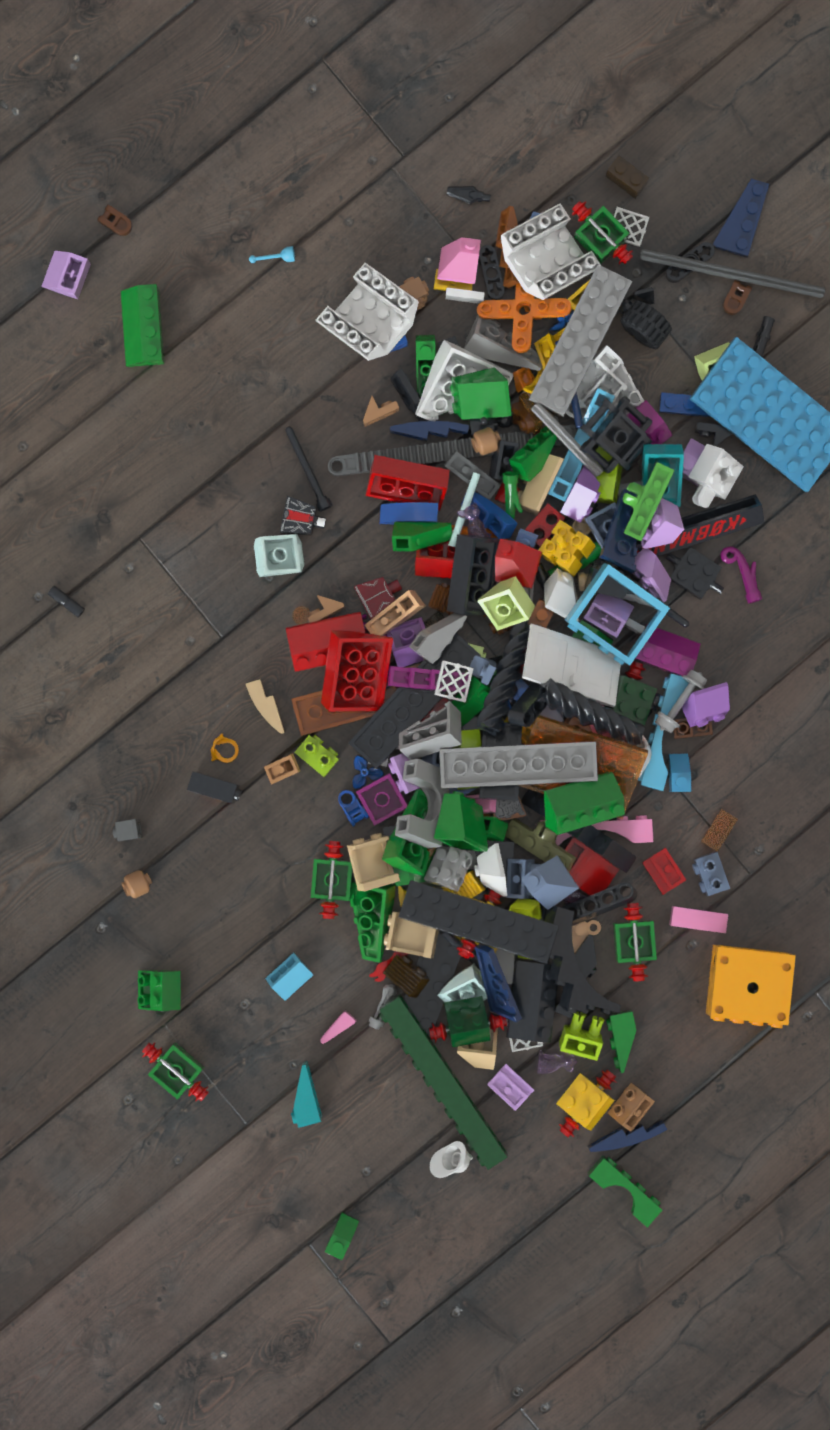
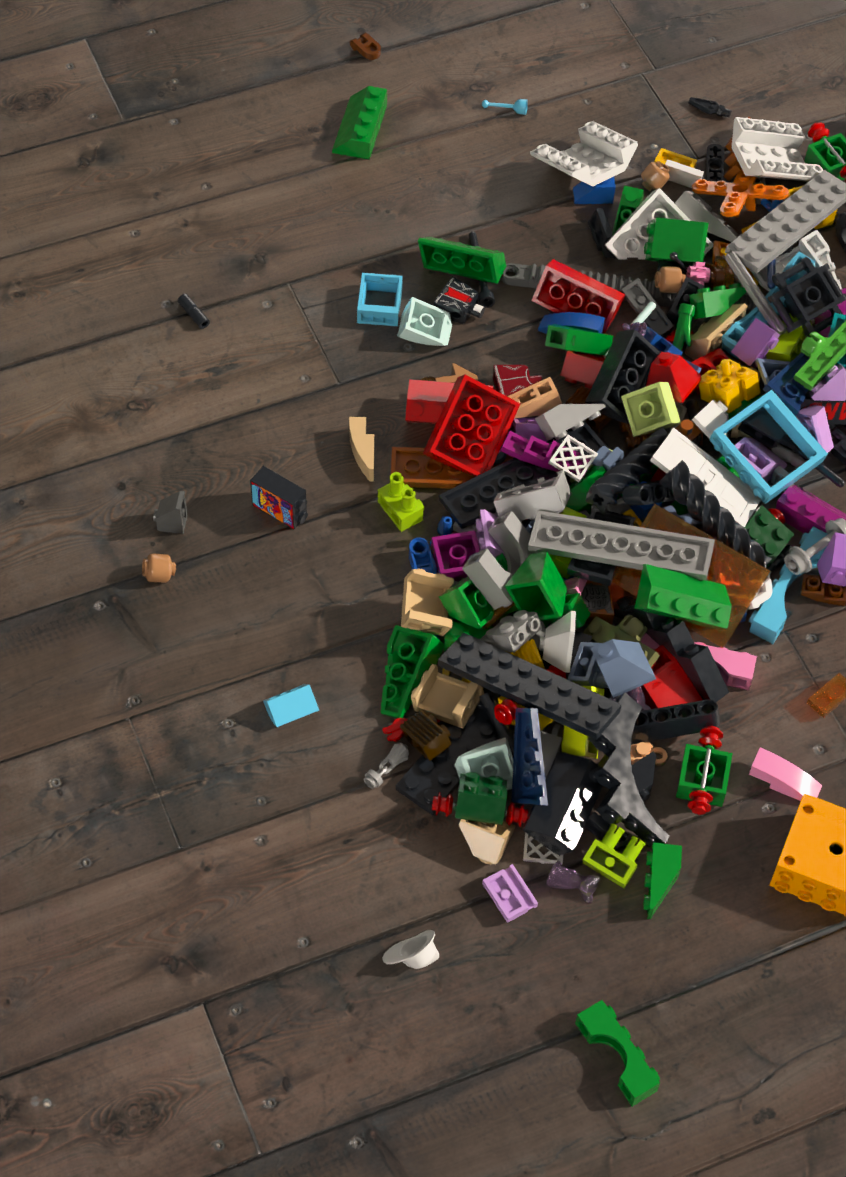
camera: 20 degrees right, 30 degrees down
(66, 273) = (307, 69): lavender slope -> none
(159, 990) = (140, 675): green slope -> none
(175, 1071) = (123, 756): green brick -> none
(215, 518) = (374, 313): none -> medium azure window
(216, 755) = (302, 467): light orange piece -> none
(282, 769) = (360, 503): medium nougat slope -> none
(290, 471) = (462, 259): none -> green slope
(306, 1105) = (260, 828): teal slope -> none
(331, 879) = (374, 615): green brick -> none
(341, 1236) = (246, 1001): green slope -> none
(343, 1022) = (328, 769): bright pink slope -> none
(375, 414) = (568, 241): medium nougat slope -> none
(417, 289) = (639, 159): medium nougat brick -> none
(422, 429) = (614, 264): dark blue slope -> none
(439, 308) = (655, 175): none -> medium nougat head
(443, 1081) = (433, 861): dark green brick -> none
(459, 261) = (689, 145): bright pink slope -> none
(509, 426) = (698, 273): none -> bright pink gear
(585, 1102) = (596, 931): yellow brick -> none
(619, 1139) = (628, 990): dark blue slope -> none
(631, 1107) = (651, 953): medium nougat brick -> none
(664, 871) = (756, 718): red plate -> none
(679, 773) = (798, 631): dark azure slope -> none
(711, 874) = (811, 733): sand blue brick -> none

